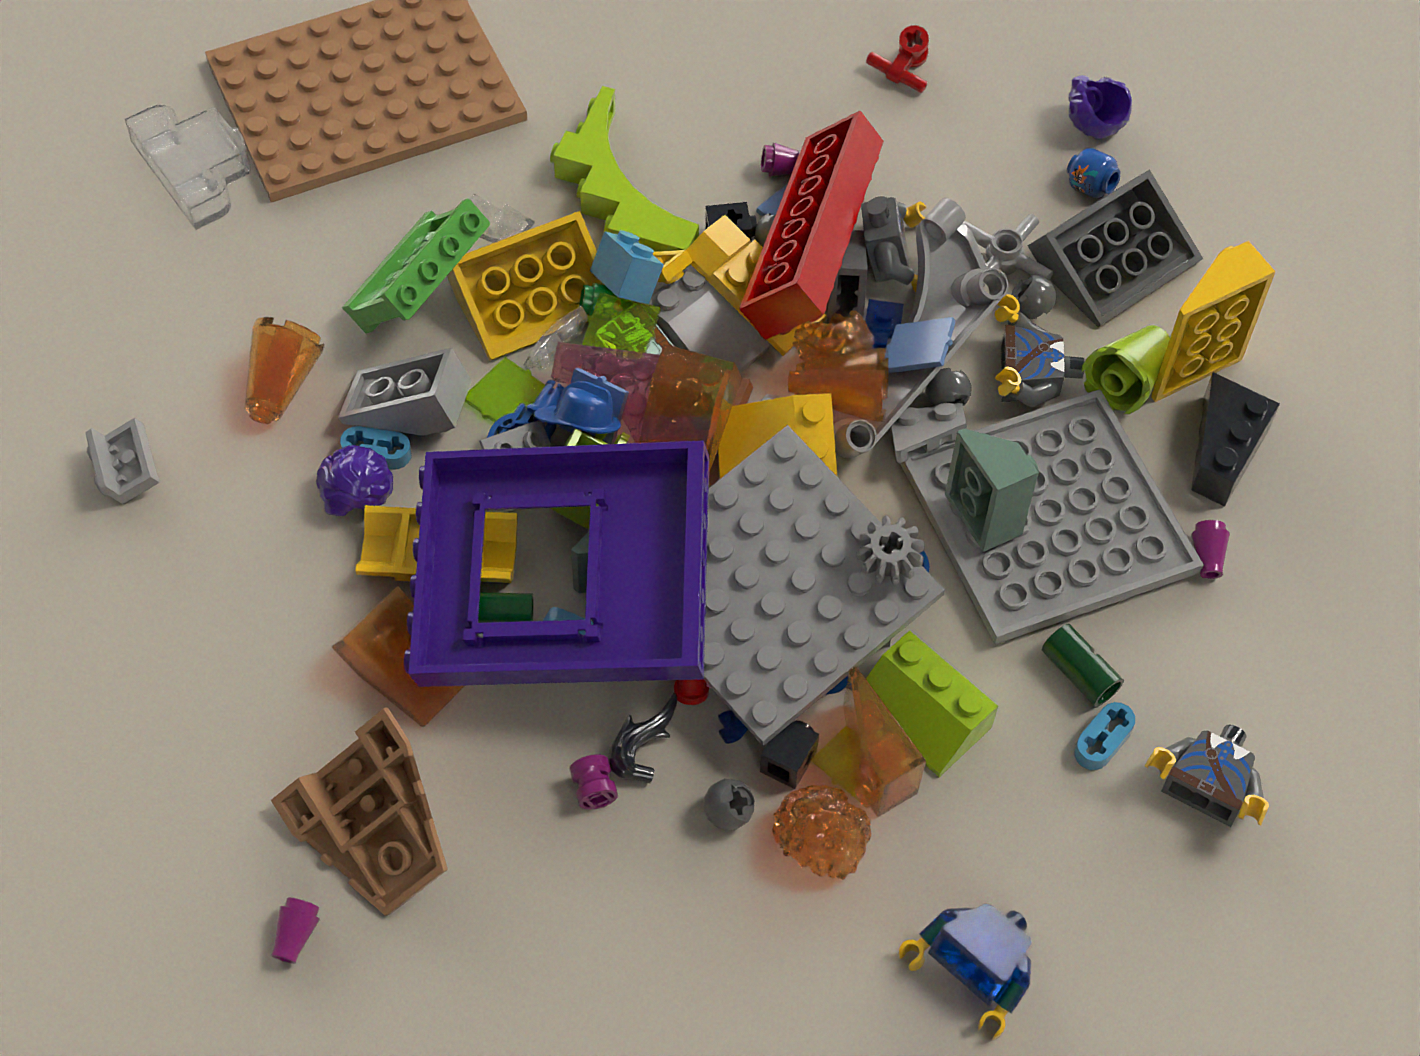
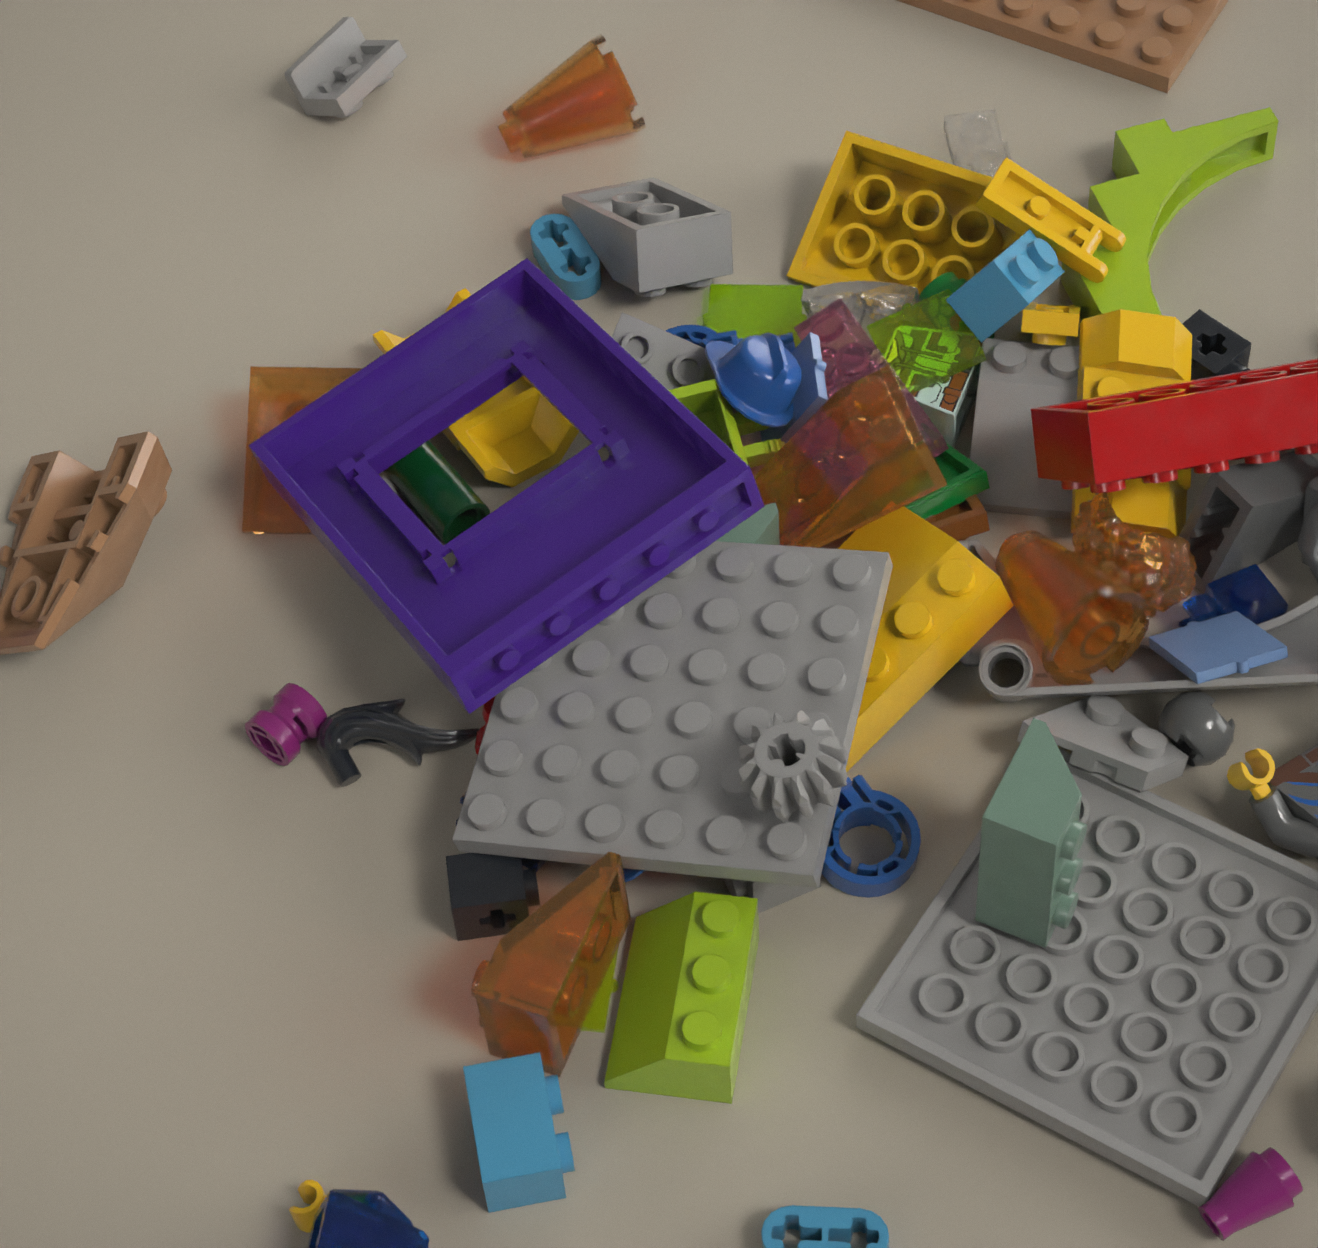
camera: 60 degrees right, 5 degrees down
(353, 479) = (487, 251): dark purple hair -> none
(416, 266) = (821, 115): bright green fence -> none
(591, 219) = (1072, 231): none -> yellow hinge
(729, 804) = (356, 851): dark grey piece -> none
(822, 830) = (398, 995): clear orange hair -> none
(945, 829) = (516, 1133): none -> dark azure brick
(1081, 666) = (906, 1144): dark green pin -> none

